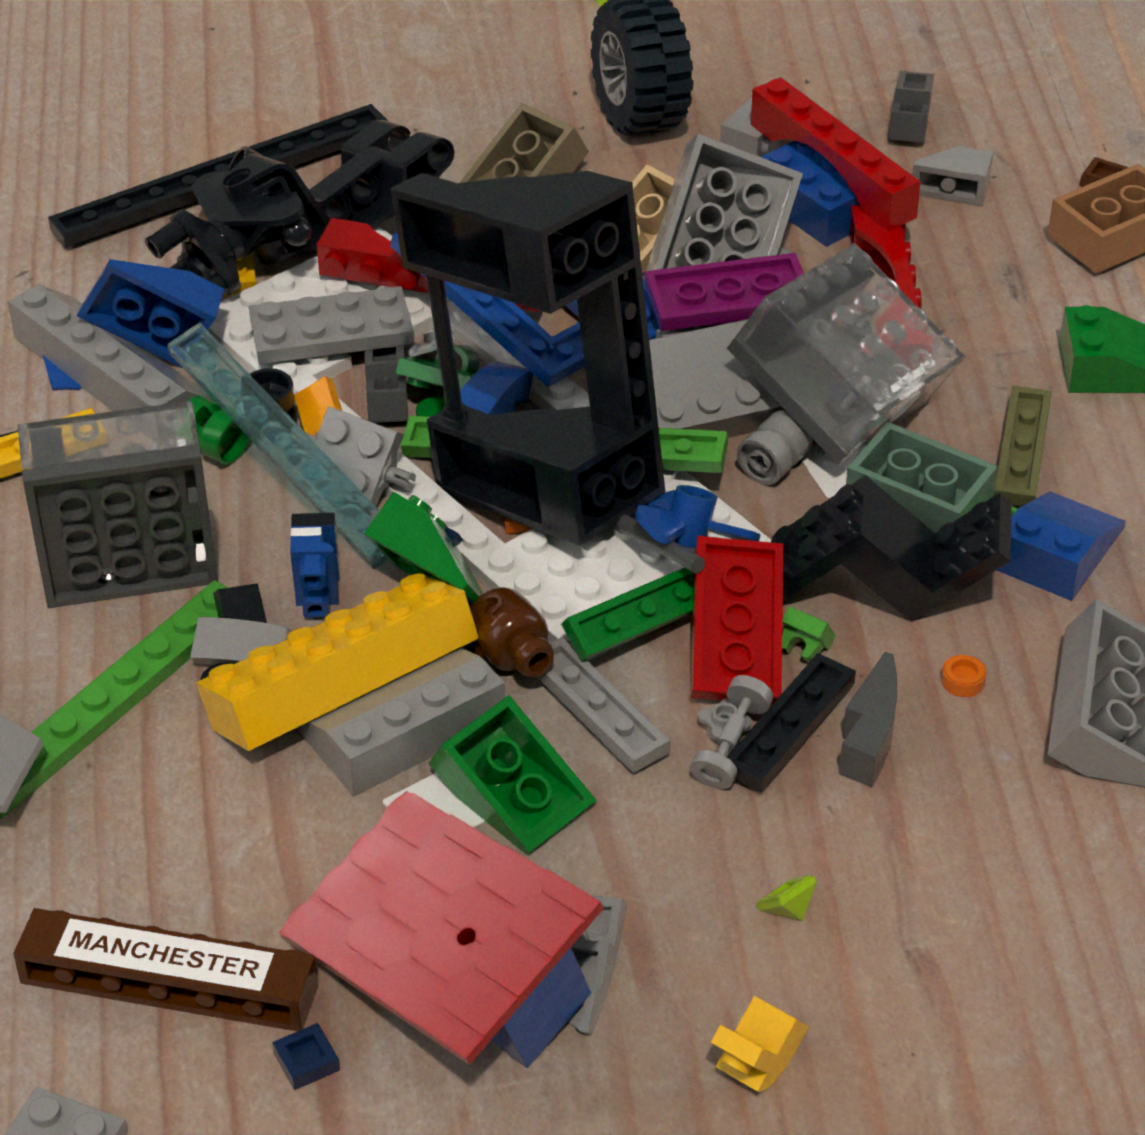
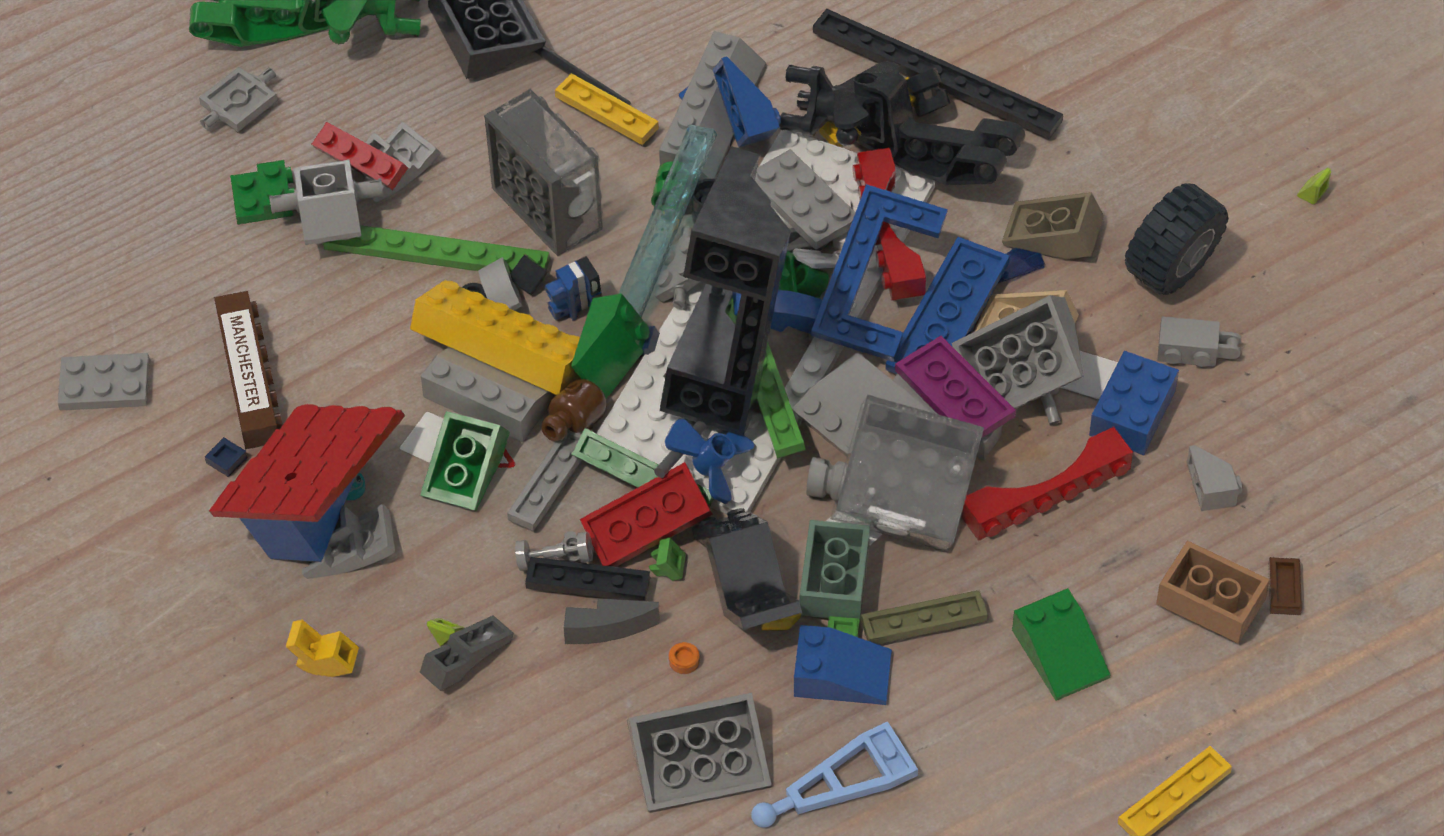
camera: 65 degrees right, 10 degrees up
(847, 883) = (463, 651): none -> dark grey slope
(880, 185) = (1131, 417): red arch -> none
(911, 106) = (1287, 423): dark grey slope -> none

